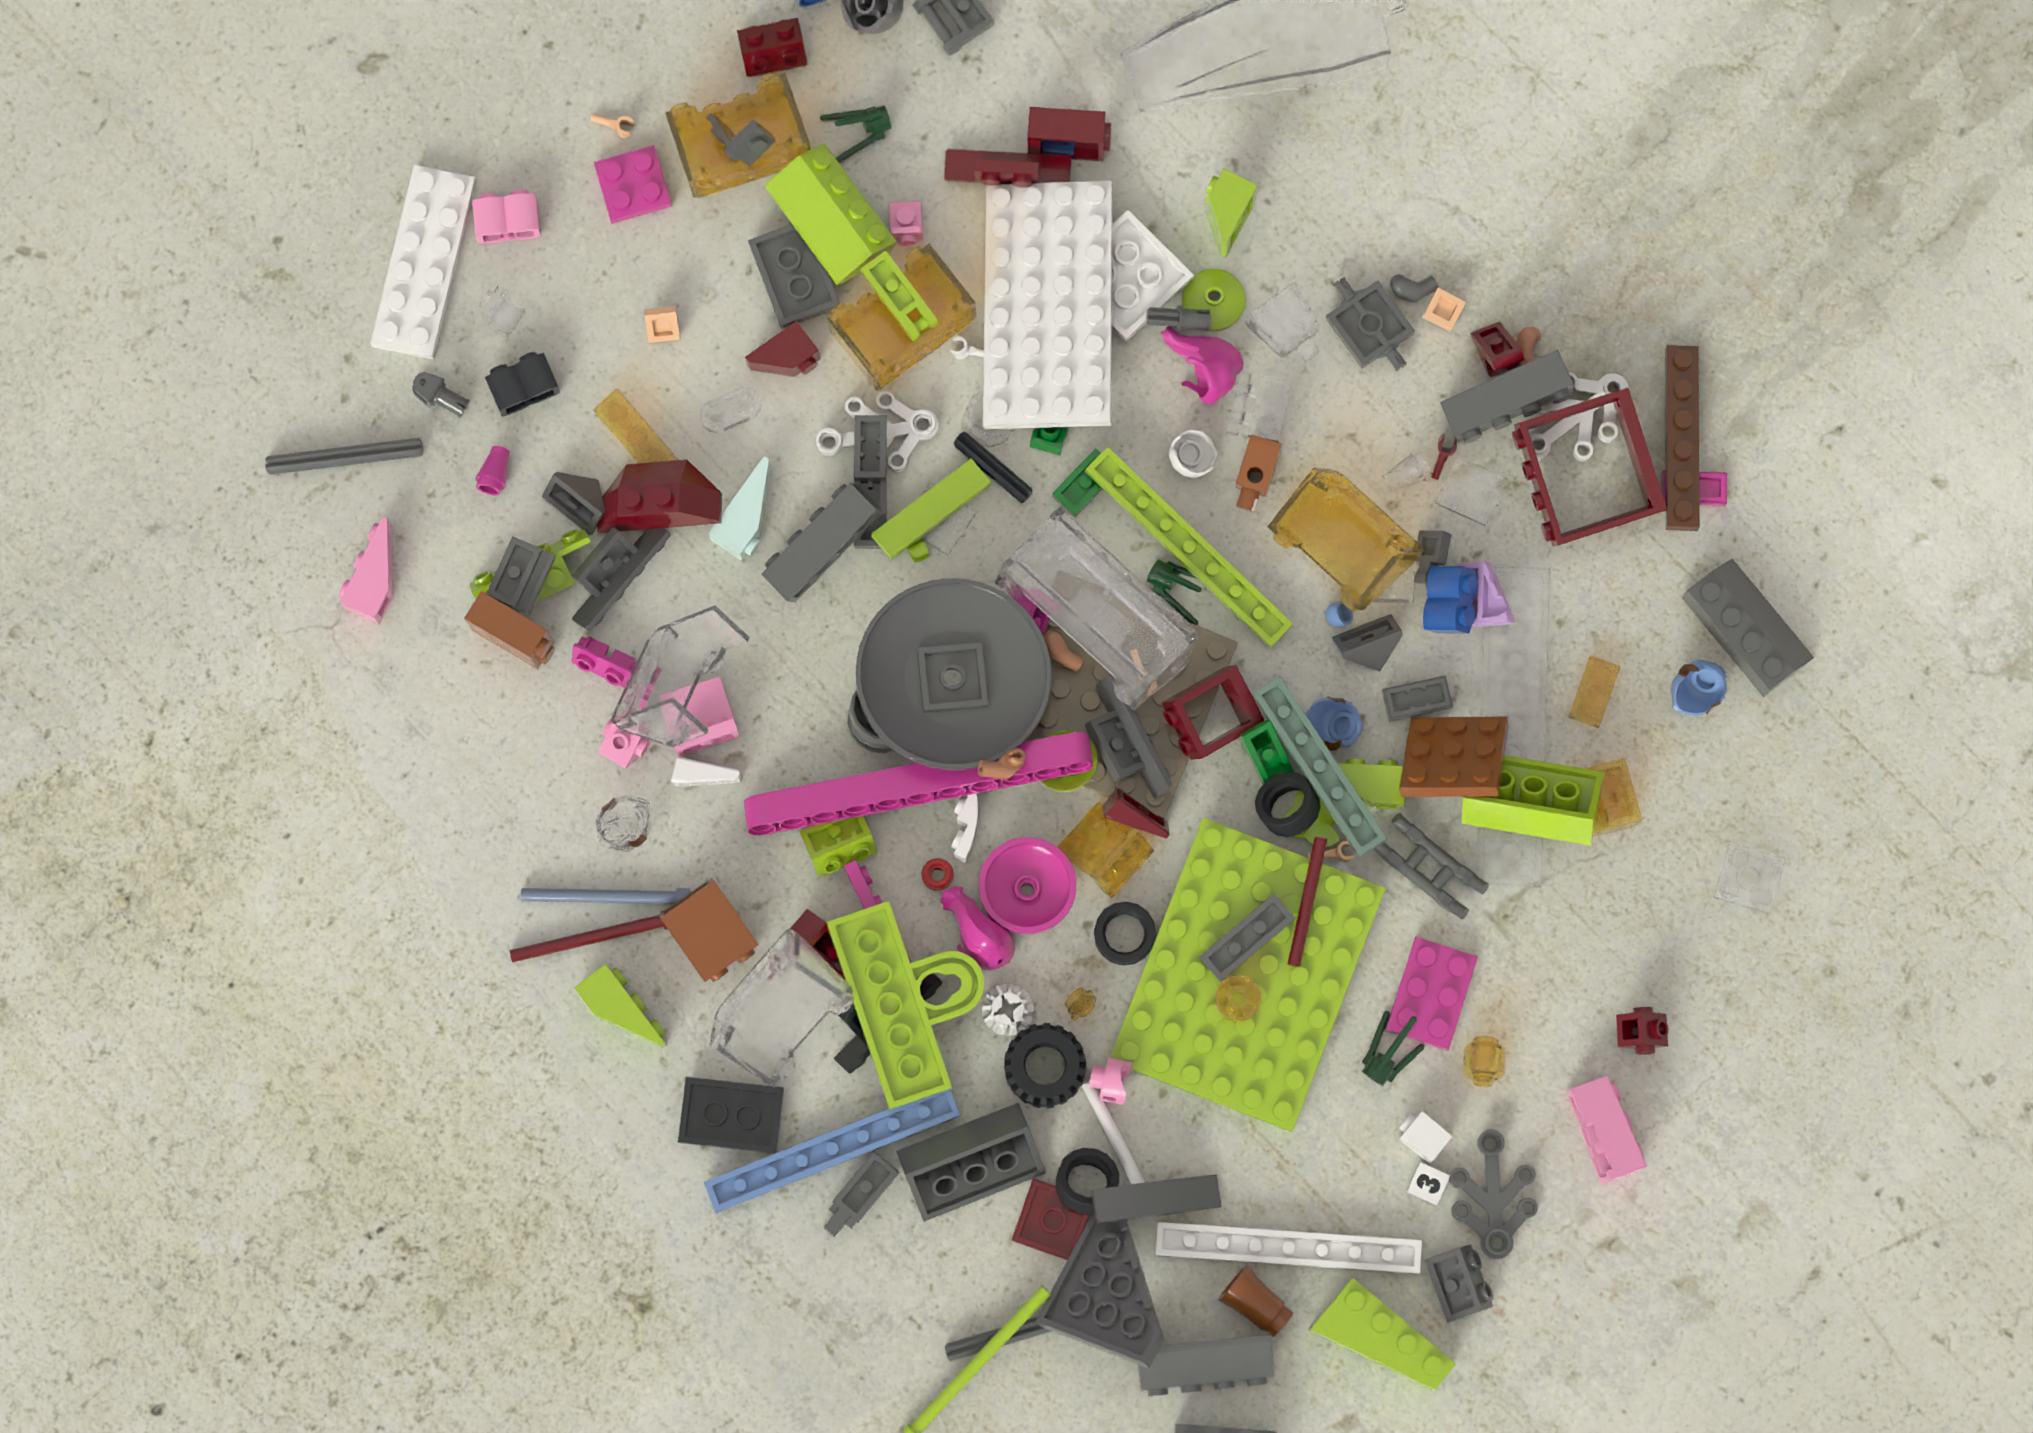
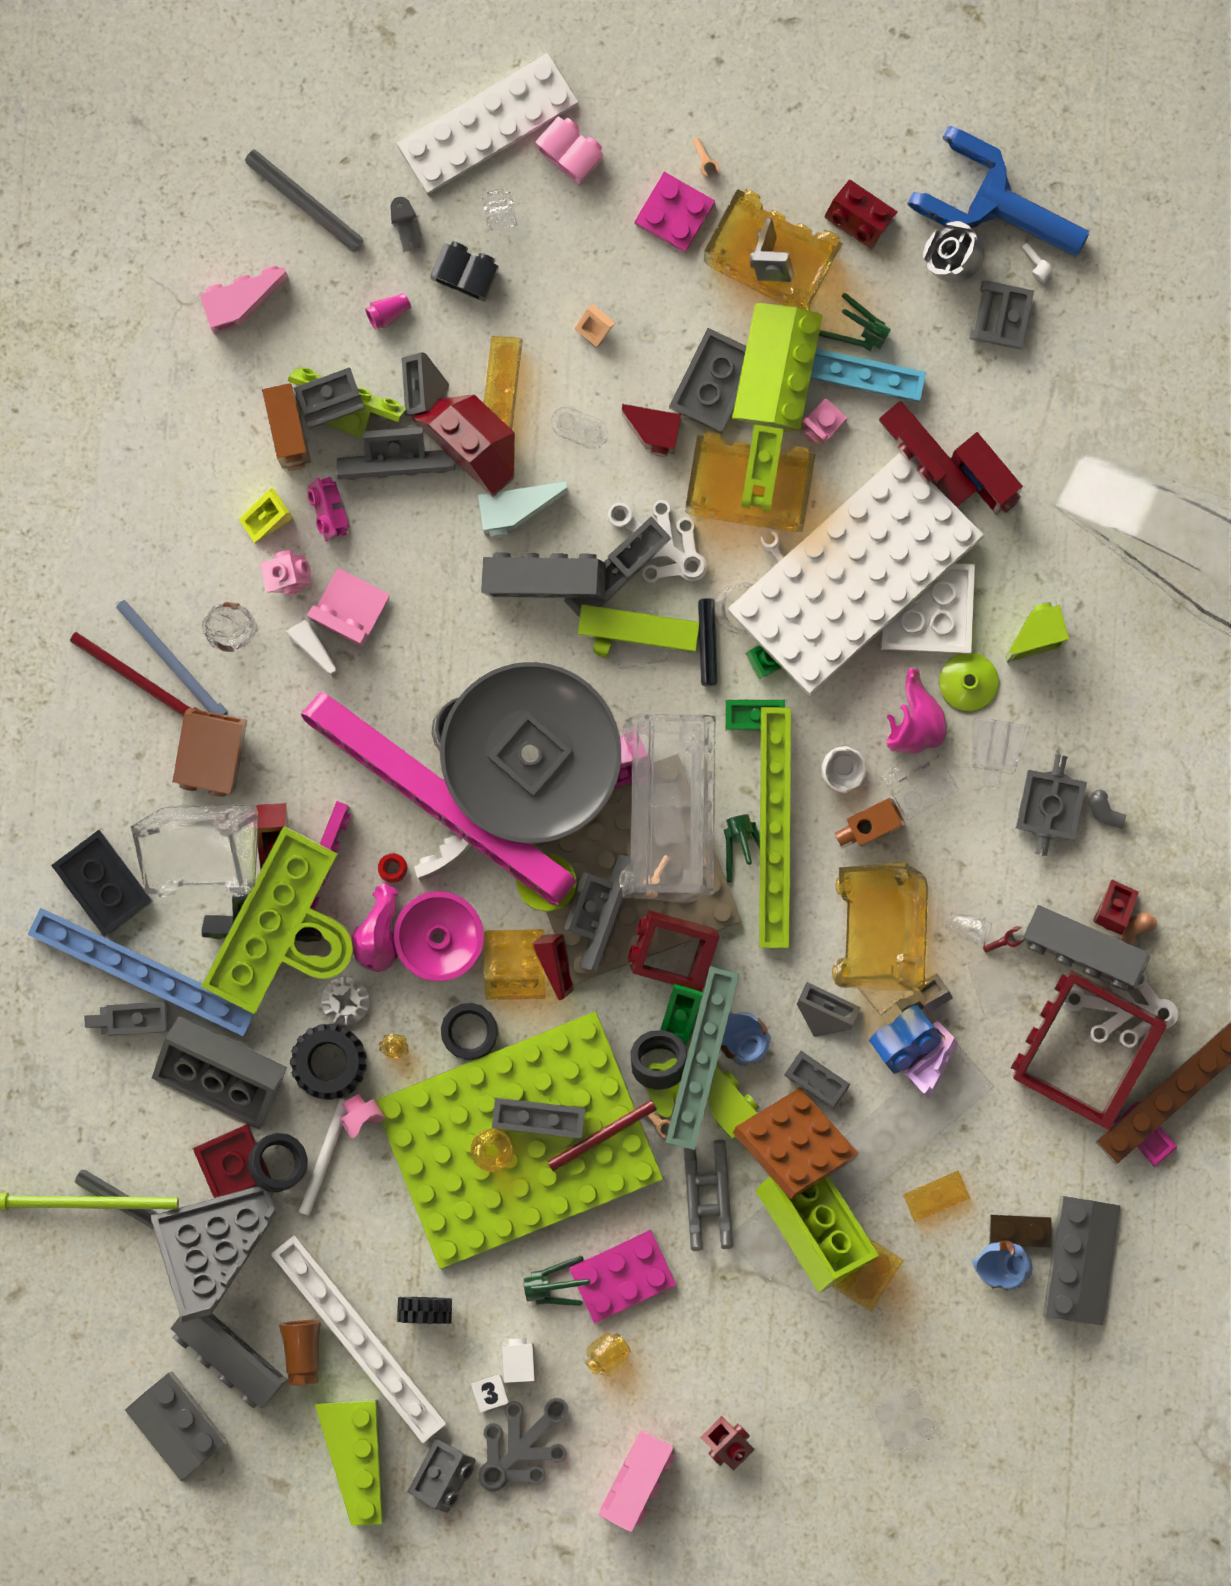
camera: 50 degrees right, 5 degrees up
(563, 714) = (265, 516): none -> neon yellow slope
(610, 1002) = (103, 734): lime slope -> none
(668, 672) = (353, 561): clear windscreen -> none
(838, 844) = (350, 782): lime bracket -> none
(904, 154) = (868, 375): none -> medium azure plate
(1004, 766) = (498, 846): nougat arm -> none
(1060, 652) = (618, 807): nougat arm -> none
(1156, 1198) = (307, 1220): dark grey slope -> none
(1179, 318) = (930, 671): dark grey axle -> none
(1315, 1171) = (424, 1310): none -> black tyre
(1338, 614) = (823, 972): medium blue hinge -> none
(1443, 309) = (1109, 846): light nougat plate -> none
(1681, 650) = (1020, 1230): none -> dark brown plate

